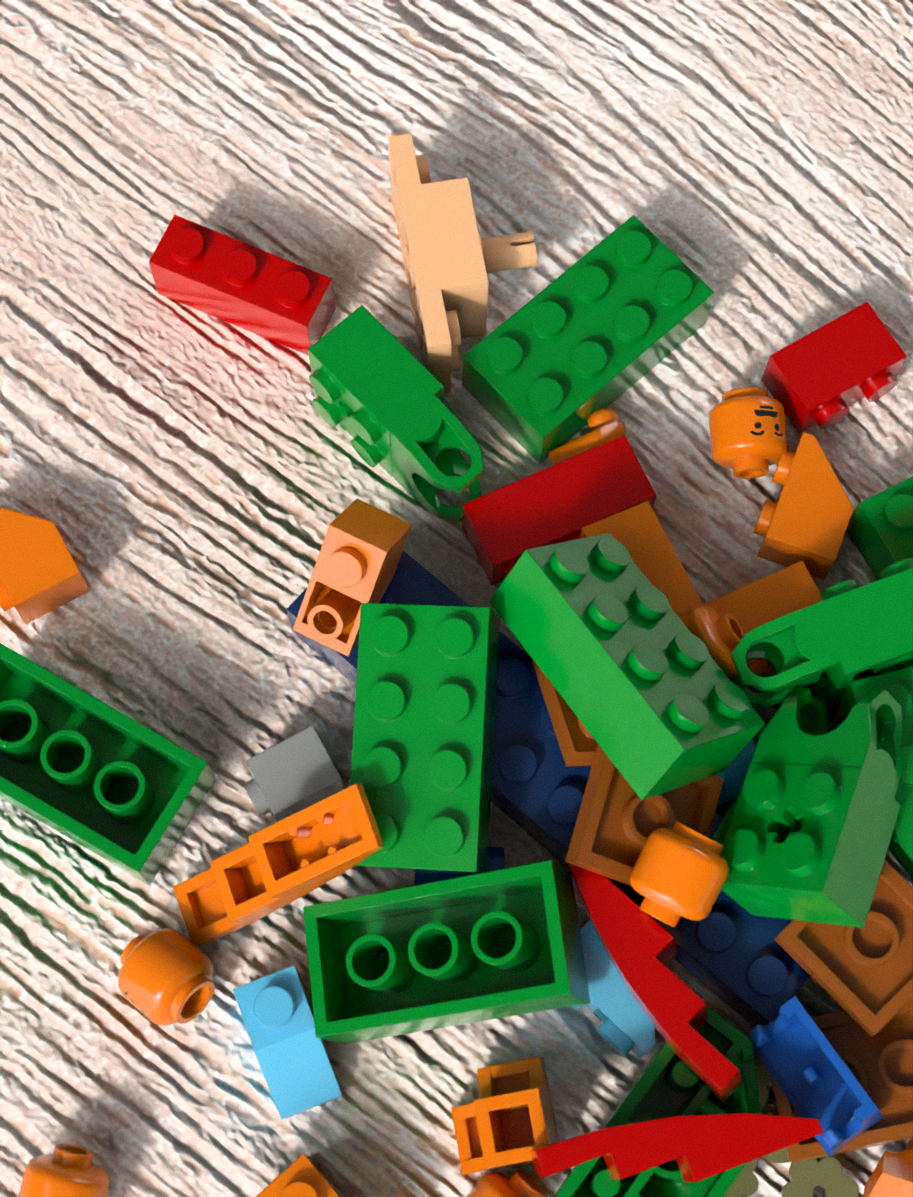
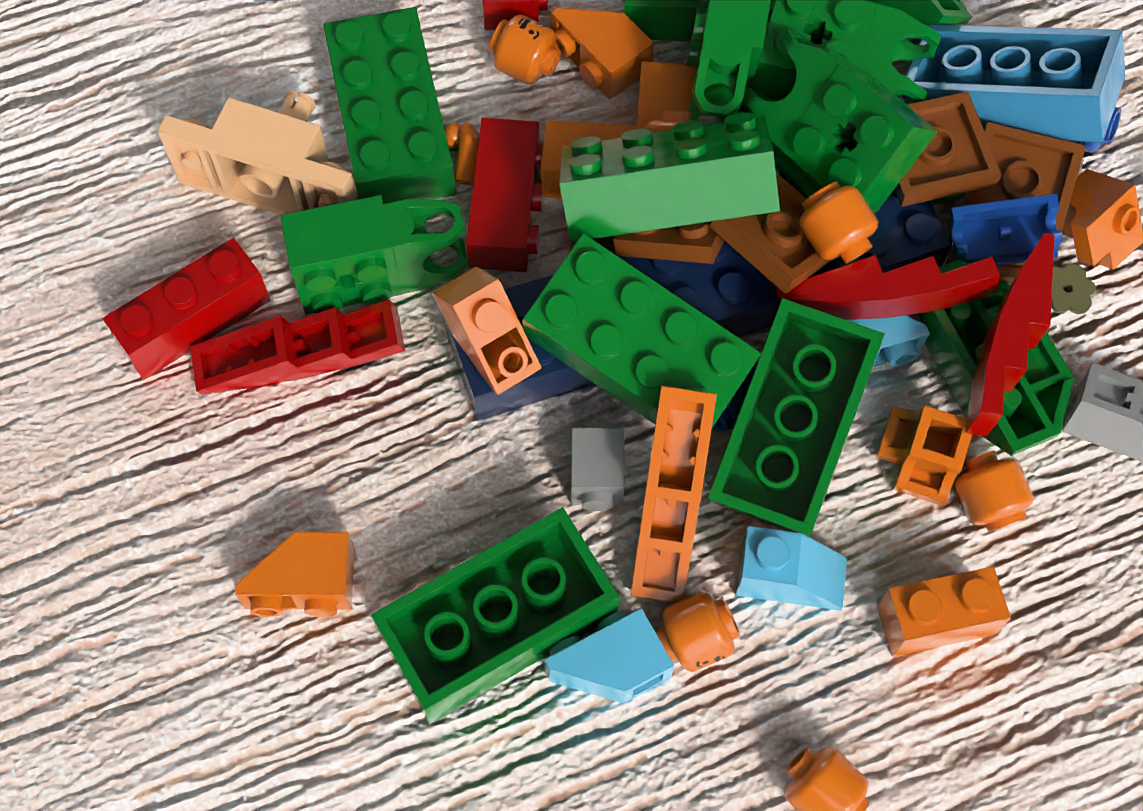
camera: 60 degrees left, 5 degrees down
(88, 907) = (614, 662): none -> medium azure slope
(266, 413) = (296, 350): none -> red slope

